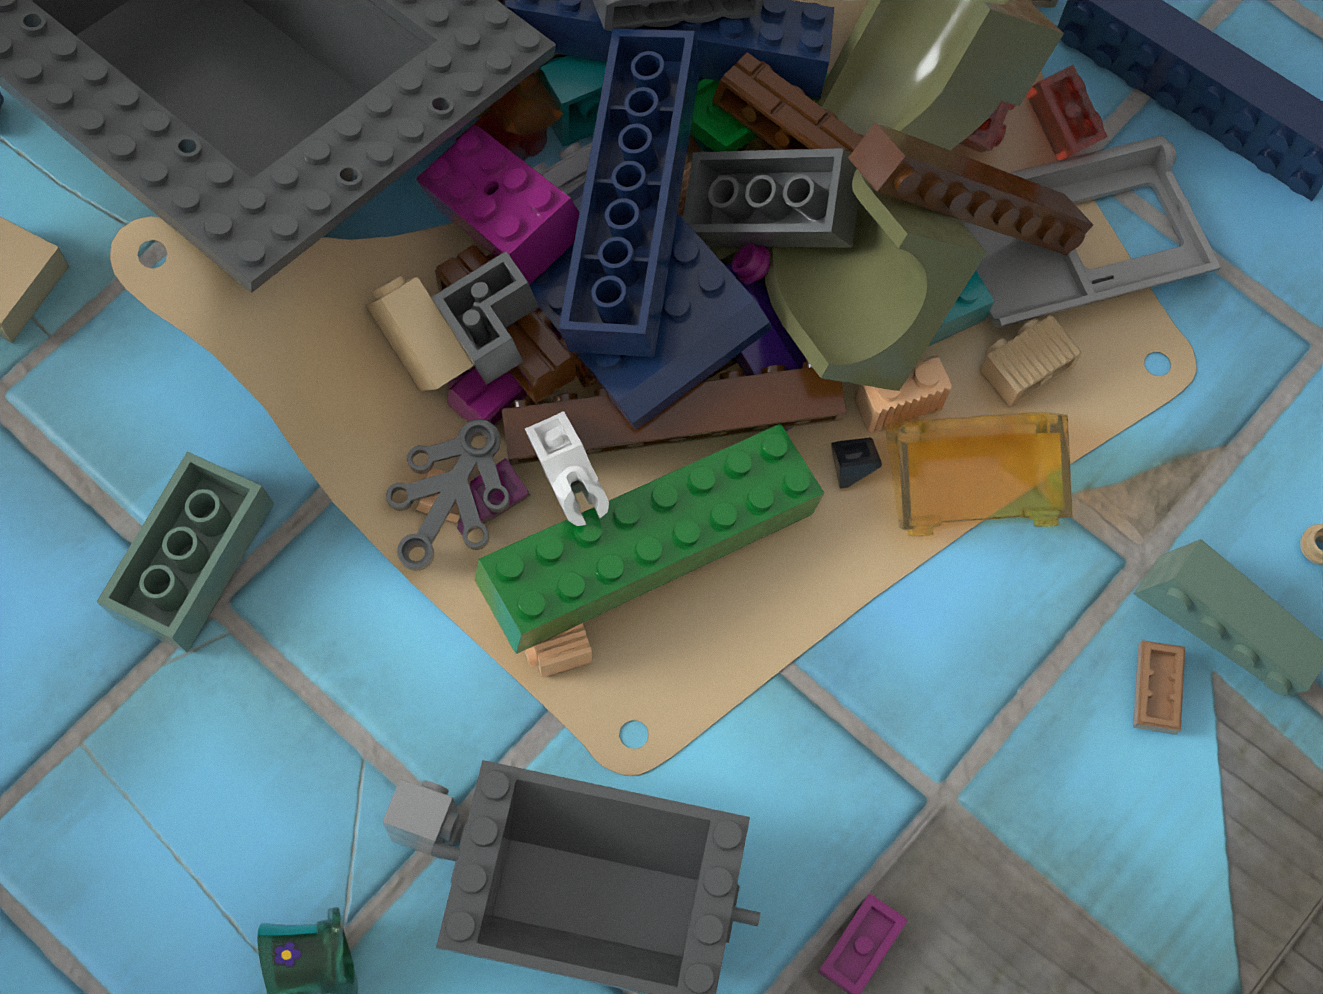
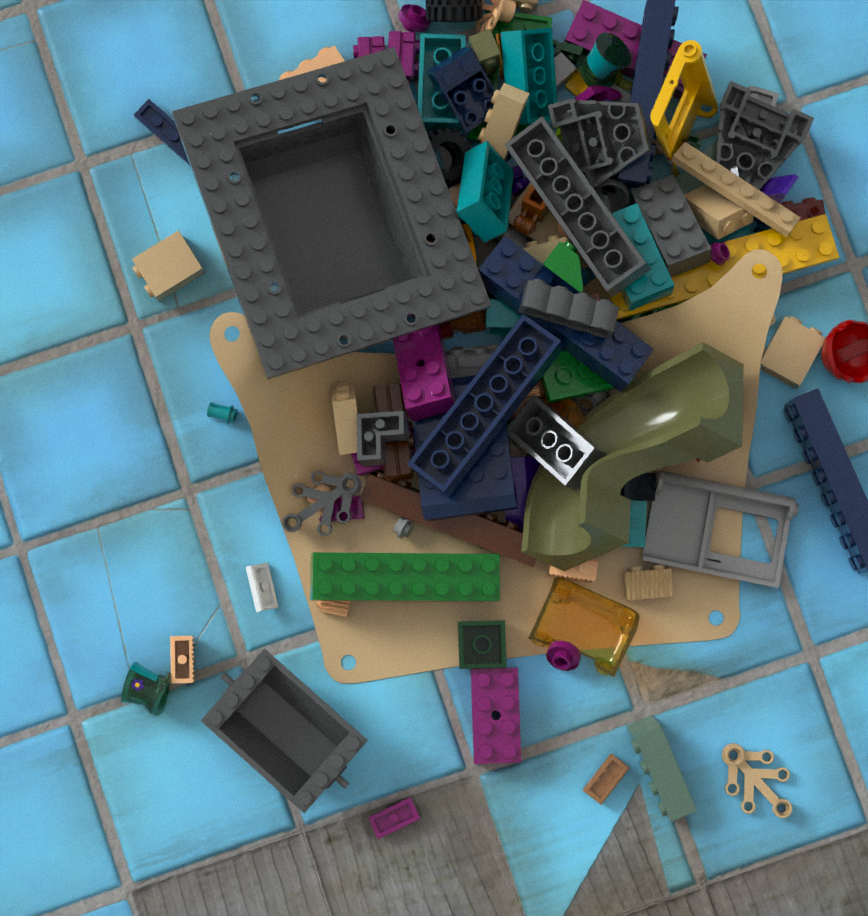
camera: 35 degrees right, 15 degrees up
(186, 551) = (187, 463): sand green brick -> none
(209, 448) = (222, 412): none -> teal pin
(347, 874) = (182, 659): none -> light nougat brick
(420, 685) = (262, 587): none -> white plate
(422, 816) = (229, 653): light grey brick -> none
(567, 466) = (379, 525): white plate -> none
(605, 468) = (403, 527): none -> light grey plate
(751, 263) = (530, 466): magenta plate -> none
(779, 110) = (592, 406): reddish brown brick -> none
(836, 579) = (482, 644): none -> dark green brick
(854, 460) = (531, 586): black slope -> none
(941, 719) = (495, 739): none -> magenta brick
(968, 190) = (649, 501): reddish brown brick -> none
(973, 530) = (563, 655): none -> magenta plate
(1066, 113) = (748, 464): clear red brick -> none

